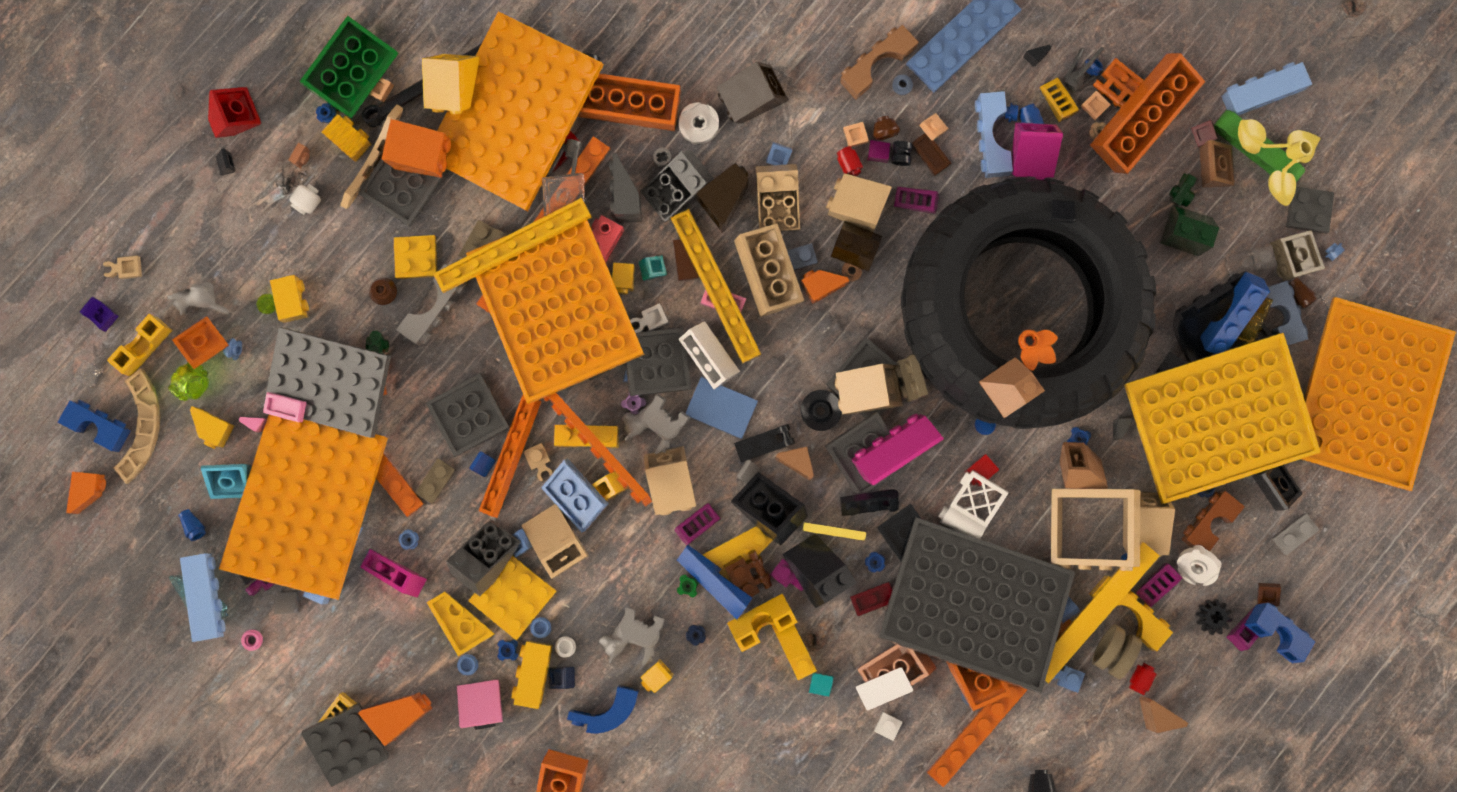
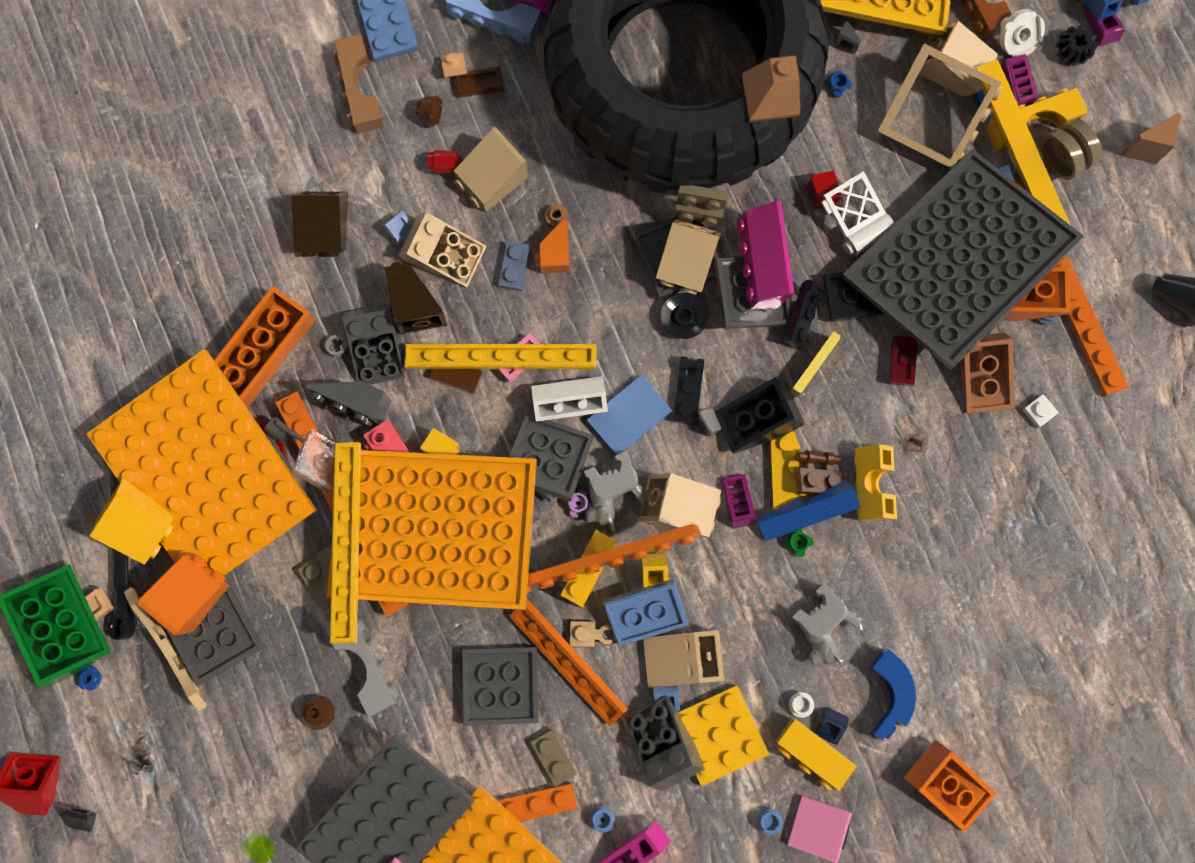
camera: 65 degrees left, 5 degrees down
(288, 298) = (269, 821): yellow brick -> none
(300, 155) = (119, 730): nougat plate -> none
(305, 199) = (170, 748): white head -> none
(346, 137) = (128, 668): yellow brick -> none
(377, 343) = (370, 746): dark green plate -> none
(415, 256) = (299, 658): yellow plate -> none
(458, 624) = (721, 809): yellow wing -> none
(482, 464) = (561, 696): blue slope -> none
(502, 650) = (782, 767): blue plate -> none
(540, 627) = (768, 721): medium blue plate -> none
(652, 267) = (446, 413): teal slope -> none
(652, 317) = (499, 438): white plate -> none
(656, 676) = (880, 622): yellow slope -> none
(695, 640) = (854, 553): dark blue plate -> none
(702, 112) = (312, 281): white plate -> none
(768, 270) = (512, 295): tan slope -> none
(785, 575) = (835, 435): magenta plate -> none
(795, 651) = (922, 465): yellow slope -> none
(798, 461) = (727, 362): medium nougat slope -> none
(818, 570) = (850, 398): black slope -> none
(821, 684) = (965, 456): teal slope -> none
(855, 134) = (420, 142): light nougat plate -> none
(856, 246) = (535, 197): dark brown slope -> none
(875, 567) = (866, 334): blue plate -> none
(878, 151) = (449, 130): magenta slope -> none
(884, 688) = (1001, 394): white sticker -> none
(902, 90) = (396, 79): sand blue plate -> none
(902, 153) = (463, 107): black wheel -> none
(918, 192) = (516, 106): magenta slope -> none
(984, 428) = (780, 166): blue plate -> none
(1040, 350) = (746, 44): orange plate -> none
(1070, 678) = (1076, 209): medium blue plate -> none
(1081, 467) = (870, 93): medium nougat slope -> none
(1142, 678) = (1110, 141): red brick -> none

